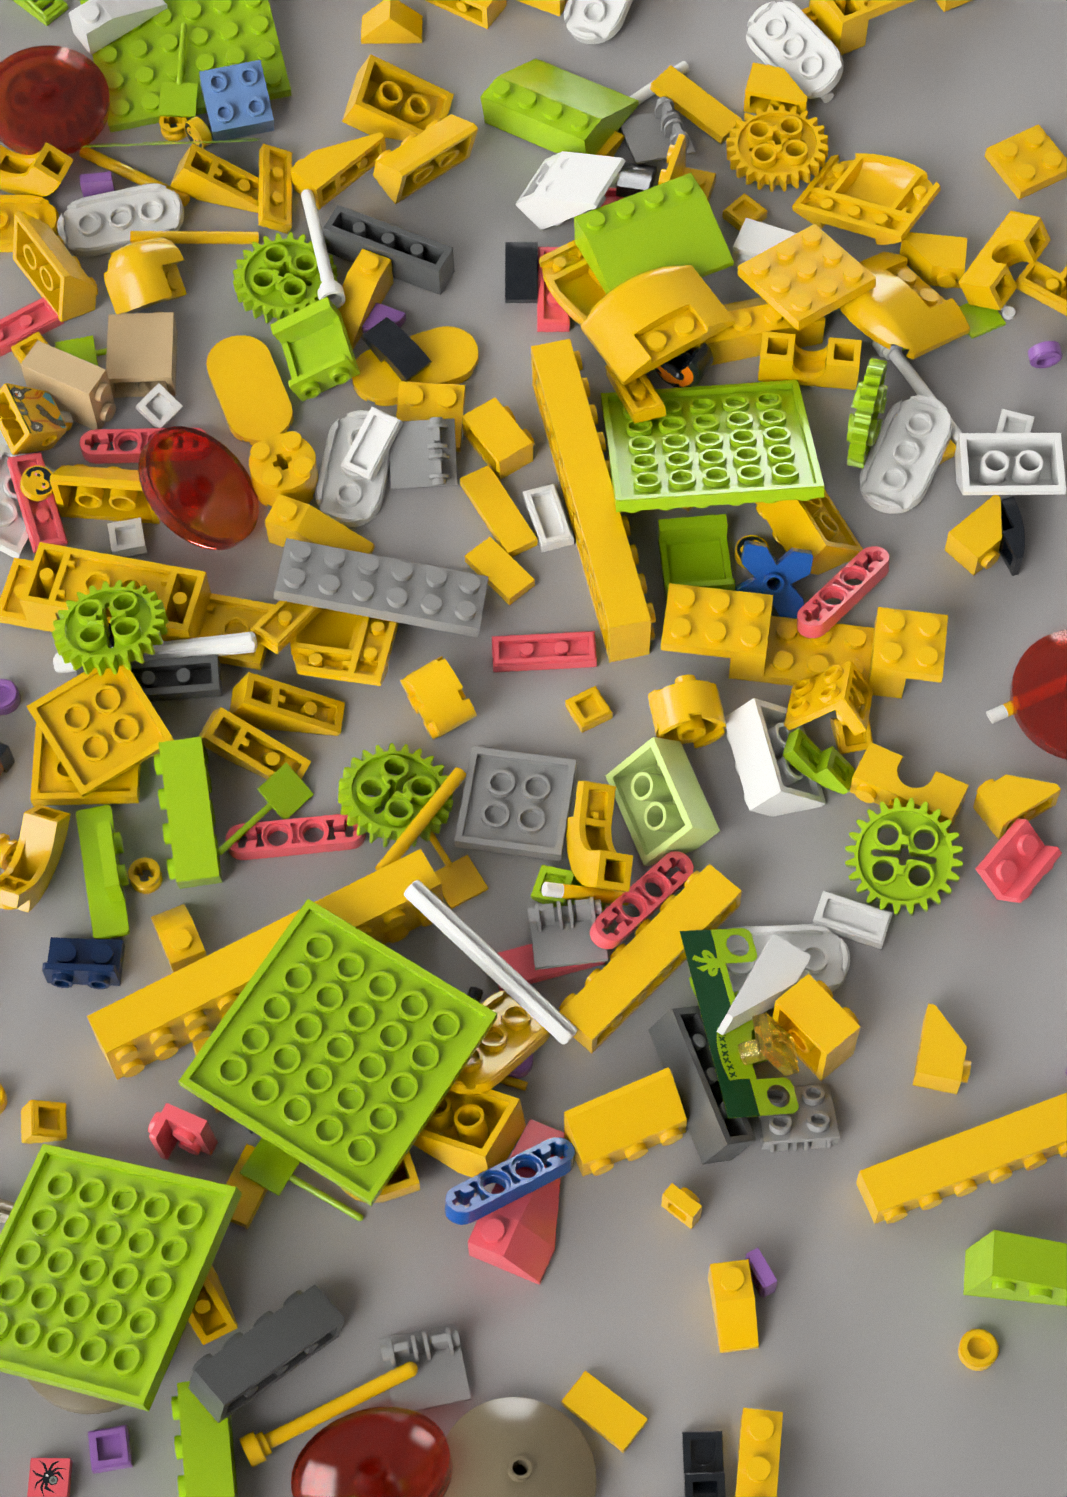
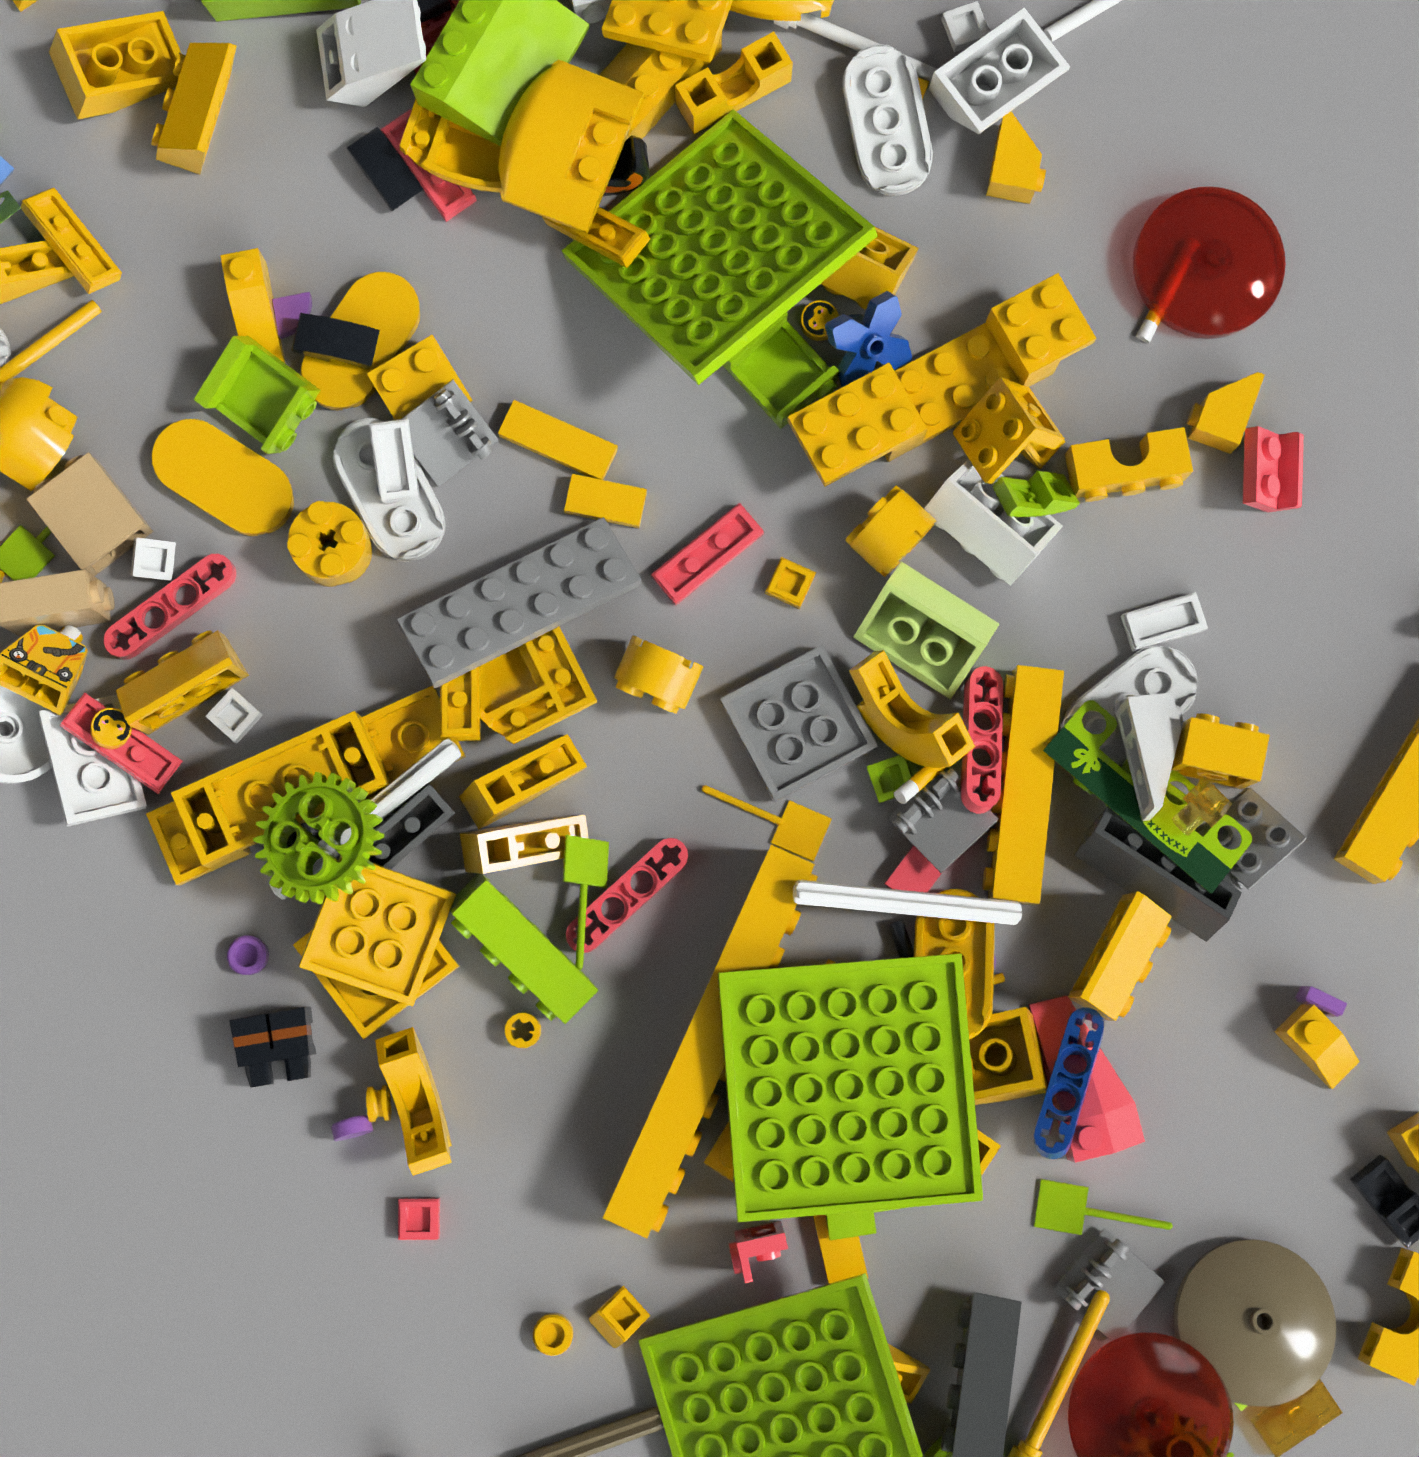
camera: 40 degrees left, 20 degrees up
(84, 962) = (535, 1149): dark blue bracket -> none
(103, 872) = (482, 1055): lime bracket -> none
(178, 937) = (602, 1068): yellow slope -> none
(198, 488) = (271, 626): clear red dish -> none
(278, 277) = (155, 303): lime gear -> none
(306, 523) = (409, 585): yellow slope -> none
(328, 287) = (224, 322): white piece -> none
(336, 167) = (112, 179): yellow slope -> none
(373, 777) = (723, 796): lime gear -> none
(412, 256) = (271, 227): dark grey brick -> none
(423, 818) = (737, 808): yellow bar -> none
(437, 1287) = (1064, 1207): none -> lime piece
(498, 438) = (502, 365): yellow piece -> none
(548, 517) = (608, 414): white tile -> none
(590, 503) = (641, 371): yellow brick -> none
(604, 1411) = (1278, 1210): yellow tile -> none
(682, 1204) = (1215, 988): yellow plate -> none
(837, 588) = (935, 306): coral beam -> none
(869, 401) = (838, 109): lime gear -> none
(909, 824) = (1185, 565): lime gear -> none
(940, 1055) = (1327, 696): yellow slope -> none
(1013, 535) = (1054, 152): black slope -> none

